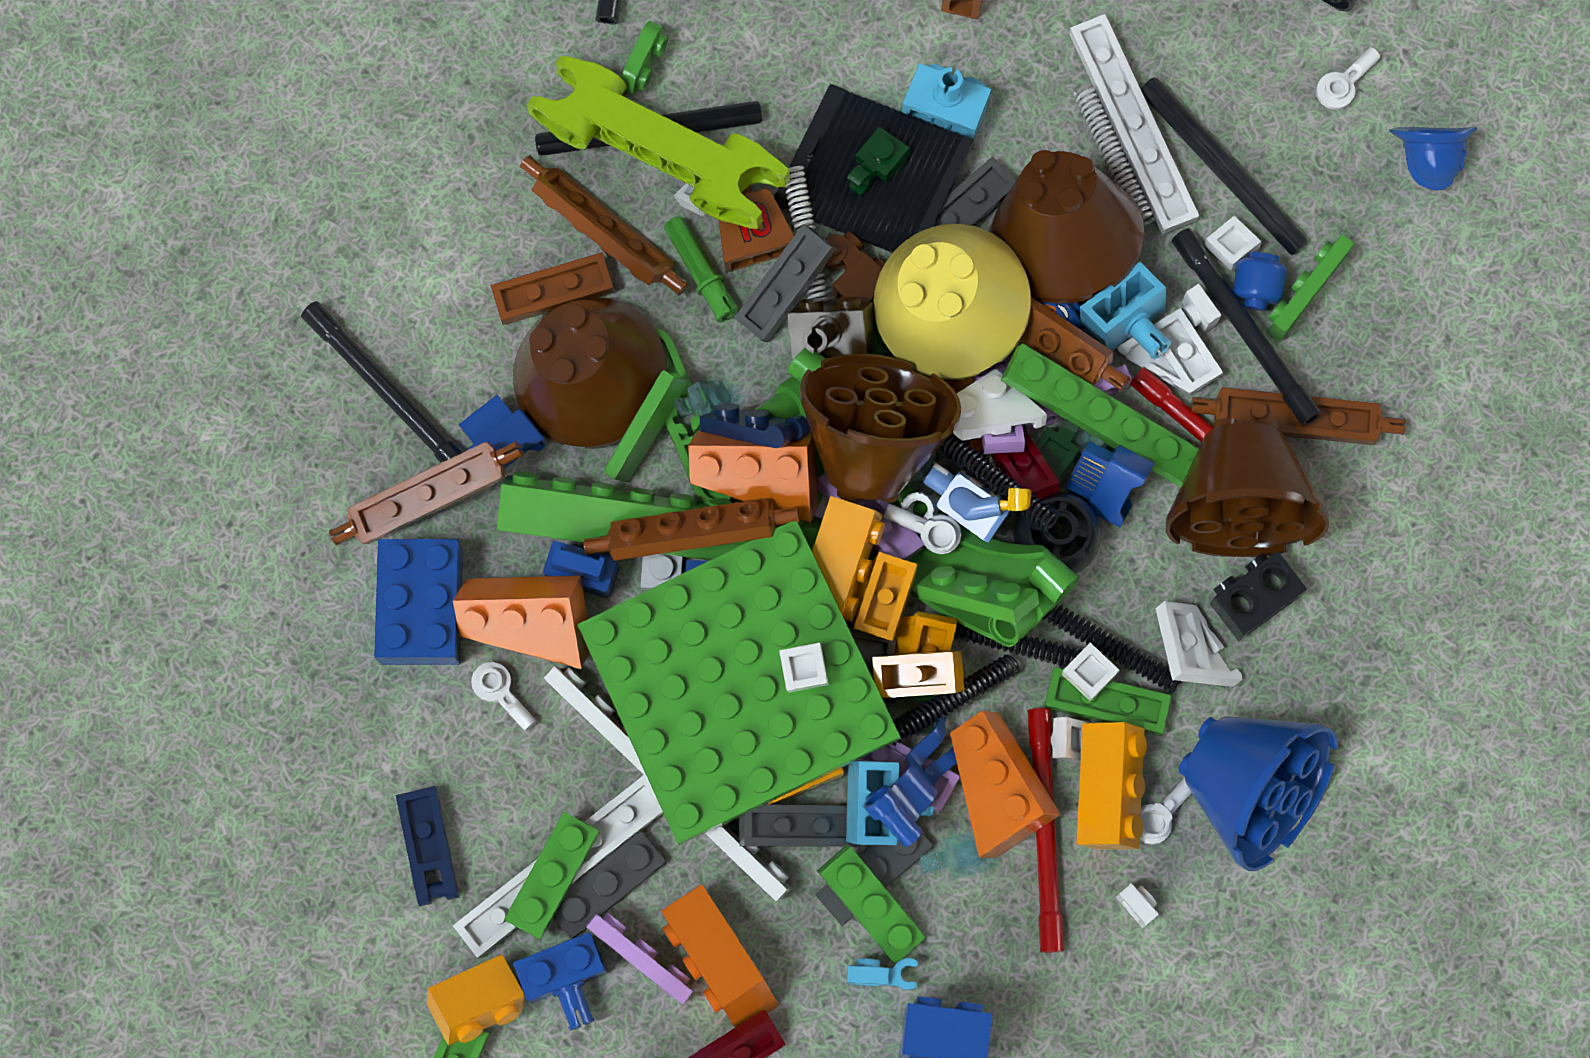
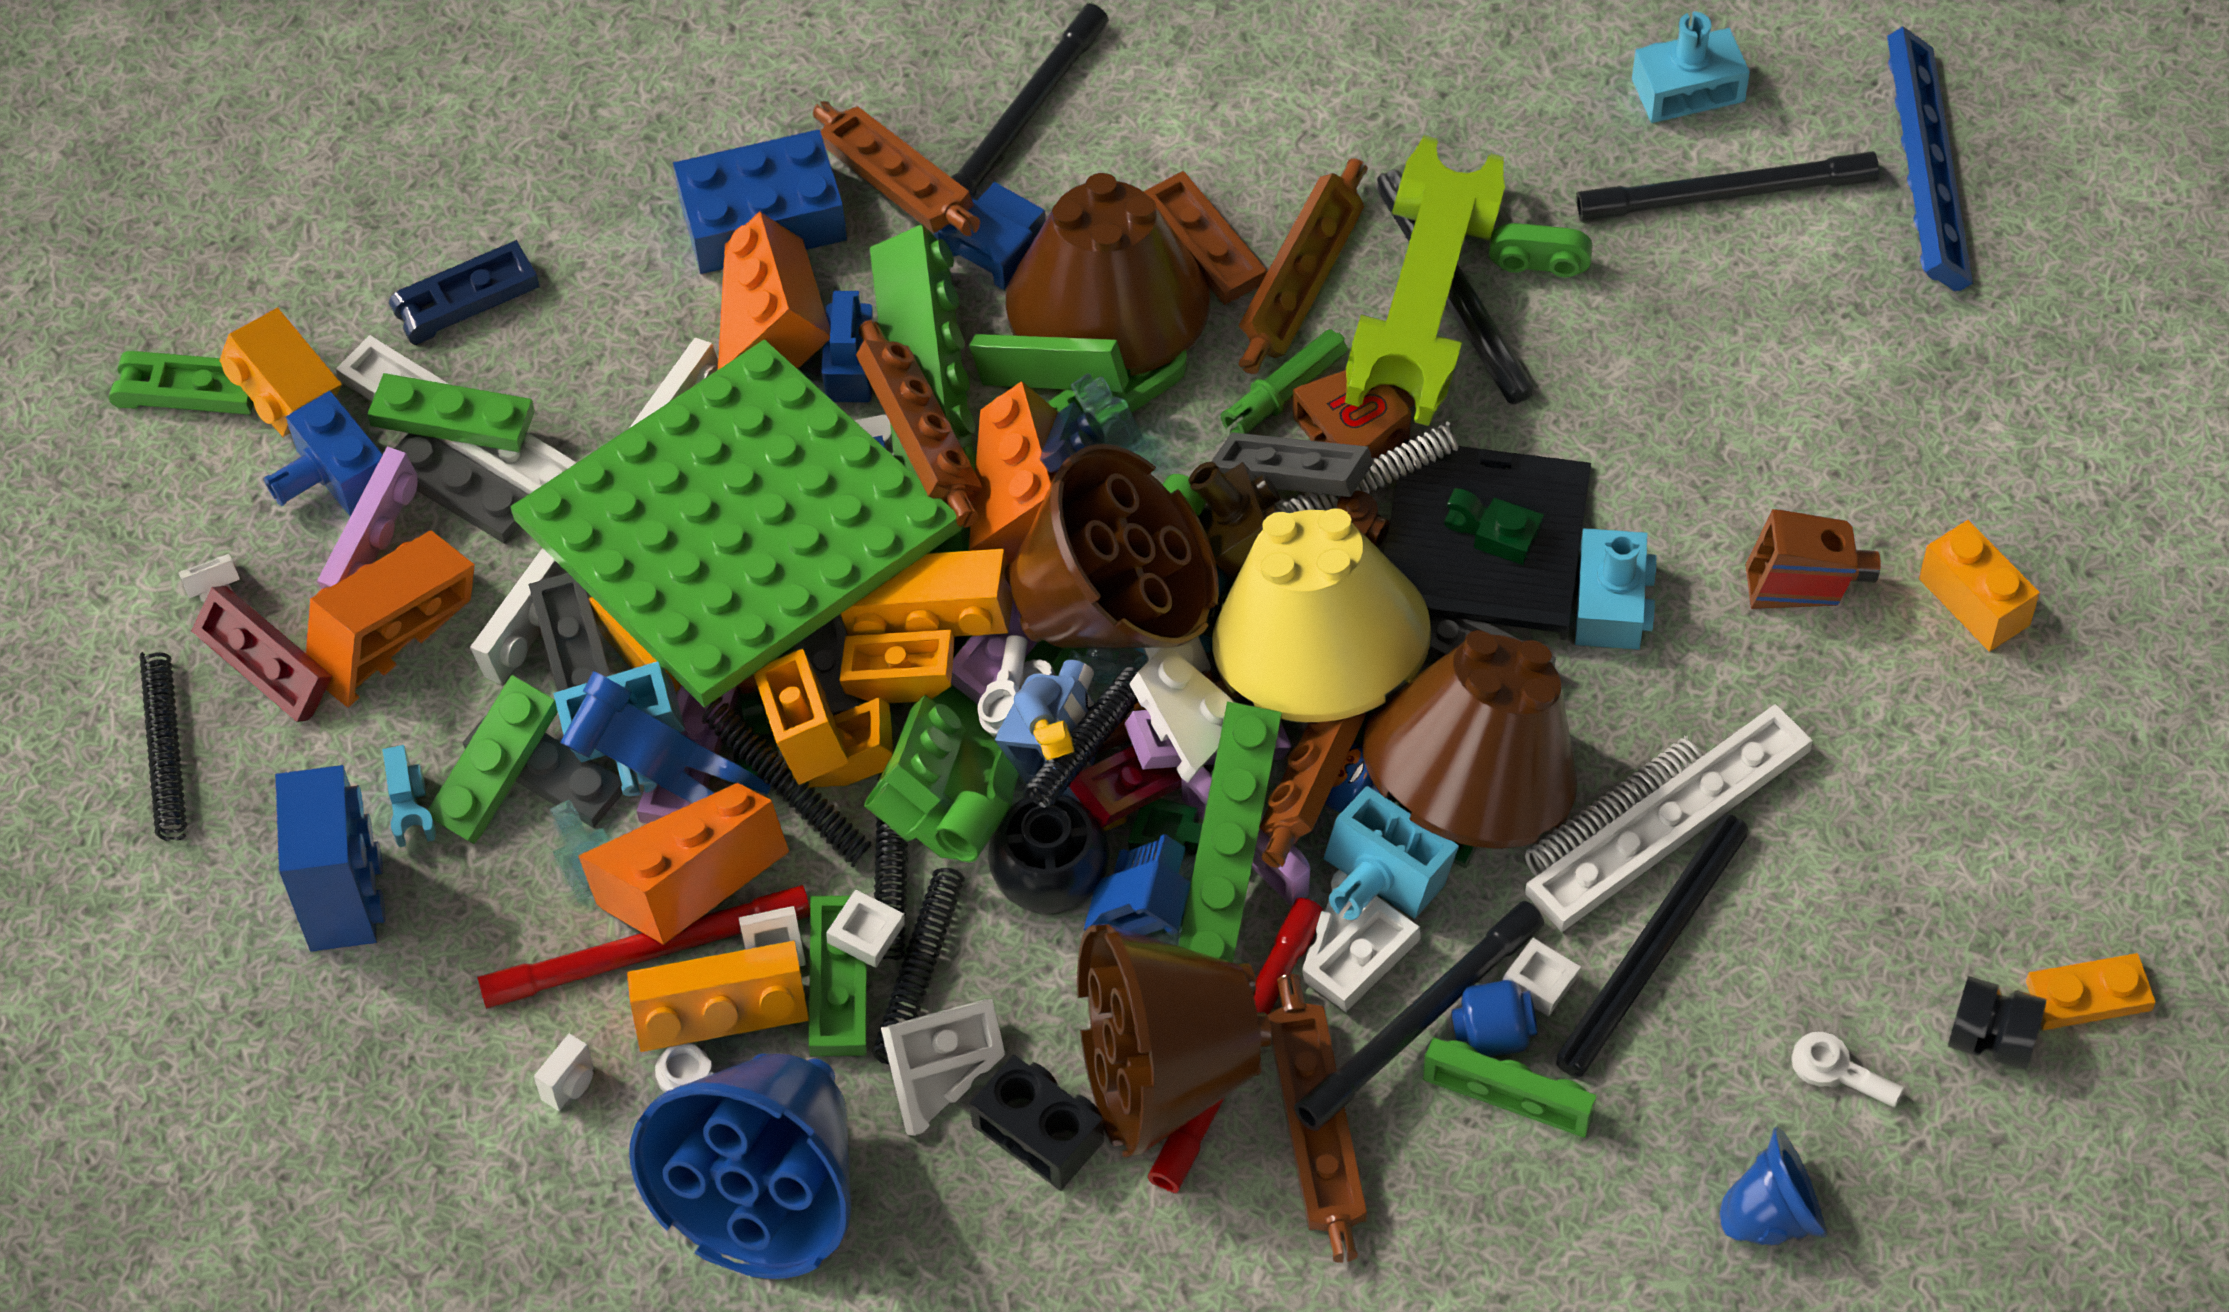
camera: 75 degrees right, 20 degrees down
(493, 684) = (680, 308): white plate -> none
(803, 667) = (758, 556): white plate -> none
(1200, 309) = (1428, 955): white plate -> none

